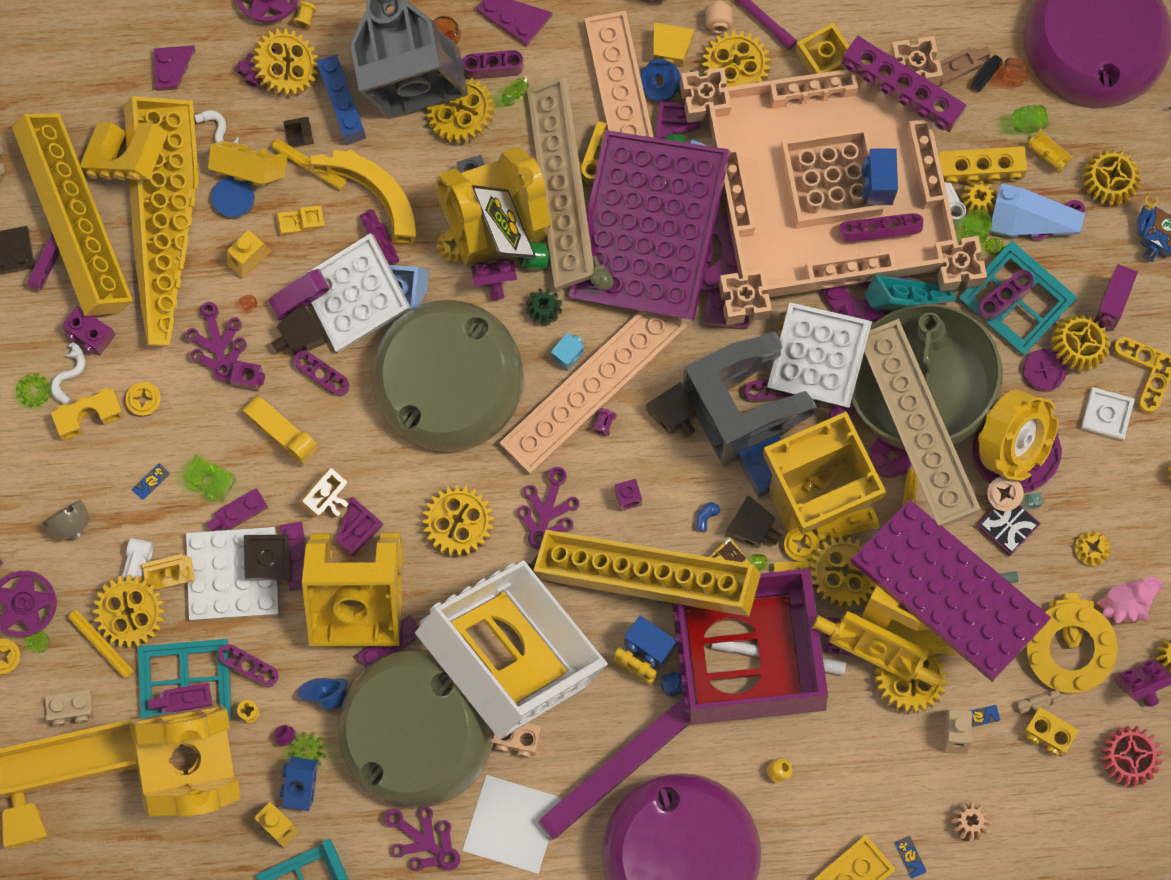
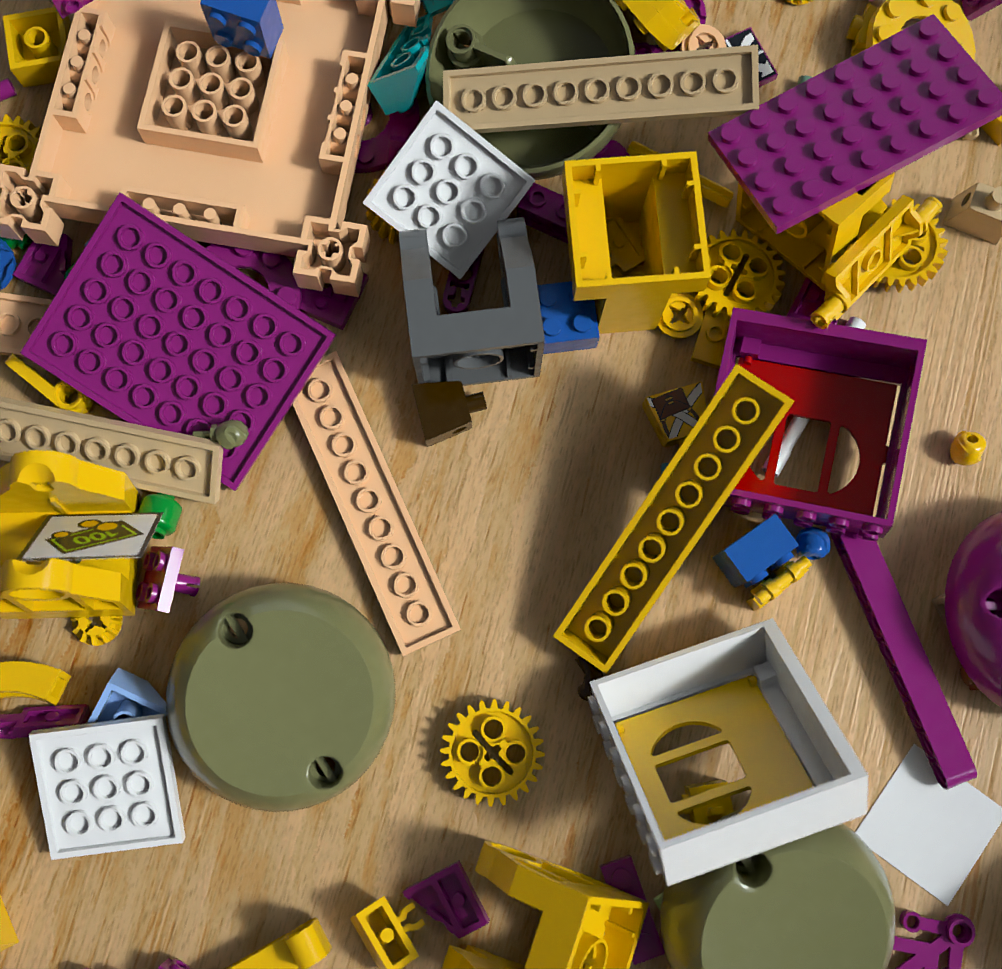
camera: 75 degrees left, 5 degrees up
(248, 303) = (58, 947): clear orange hinge -> none
(298, 332) = (133, 888): dark brown torso -> none
(302, 291) = (76, 869): magenta beam -> none
(322, 382) = (209, 859): magenta beam -> none
(544, 314) = (225, 537): dark green gear -> none
(547, 512) = (521, 625): magenta plant -> none
(568, 351) = (309, 517): medium azure brick -> none
(604, 422) = (426, 505): magenta bush -> none
(628, 494) = (538, 508): magenta brick -> none
(704, 514) = (596, 420): blue arm -> none
(753, 525) = (634, 364): dark brown torso -> none
(758, 561) = (684, 375): clear neon green hinge -> none
(881, 229) = (297, 88): magenta beam -> none
(985, 715) = (963, 178): sticker -> none
(1034, 500) = (718, 19): clear light blue hinge -> none

